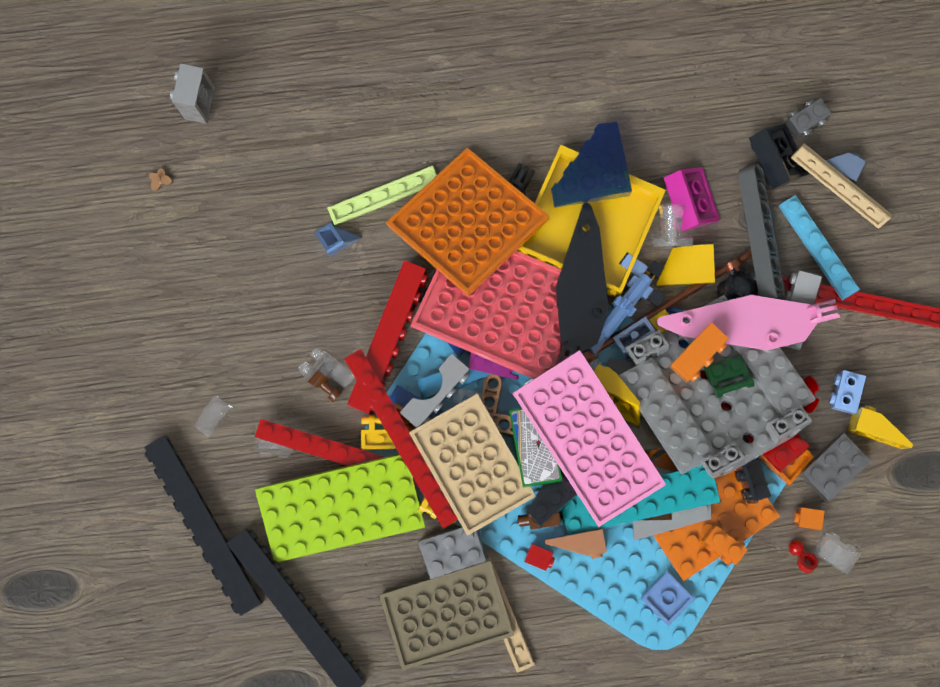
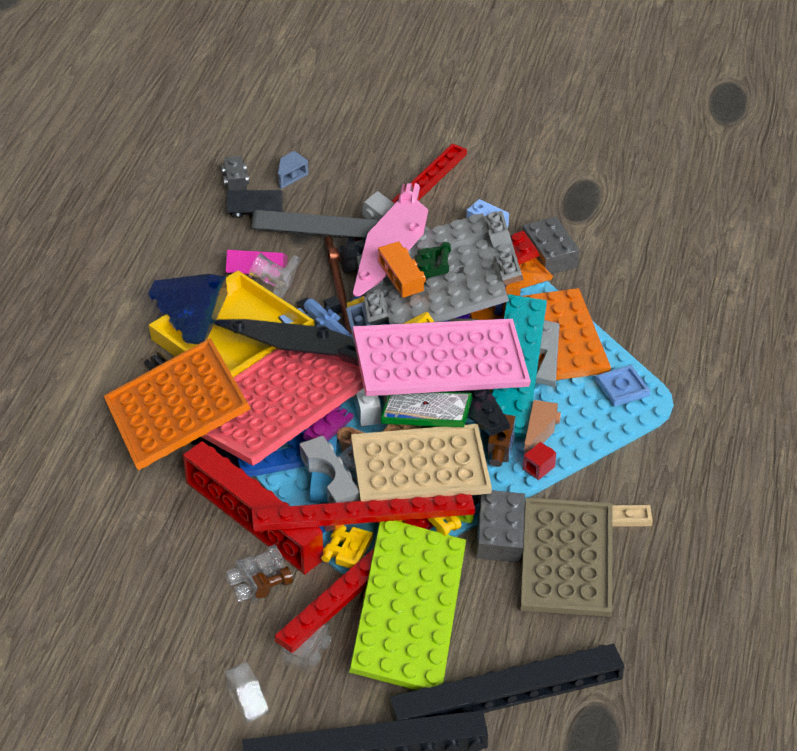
camera: 65 degrees left, 40 degrees down
(335, 239) = (122, 527): medium blue slope -> none
(381, 196) = (105, 477): yellowish green tile -> none
(689, 266) = (316, 278): yellow slope -> none
(729, 548) = (588, 320): orange brick -> none
(752, 482) = (540, 284): black bracket -> none
(797, 548) = (627, 288): red plate -> none
(808, 518) = (589, 274): orange brick -> none
(819, 247) = (346, 201): medium azure plate -> none
(836, 553) = (629, 267): clear brick -> none
(841, 186) = (305, 171): tan tile -> none
(876, 427) = (530, 205): yellow slope -> none

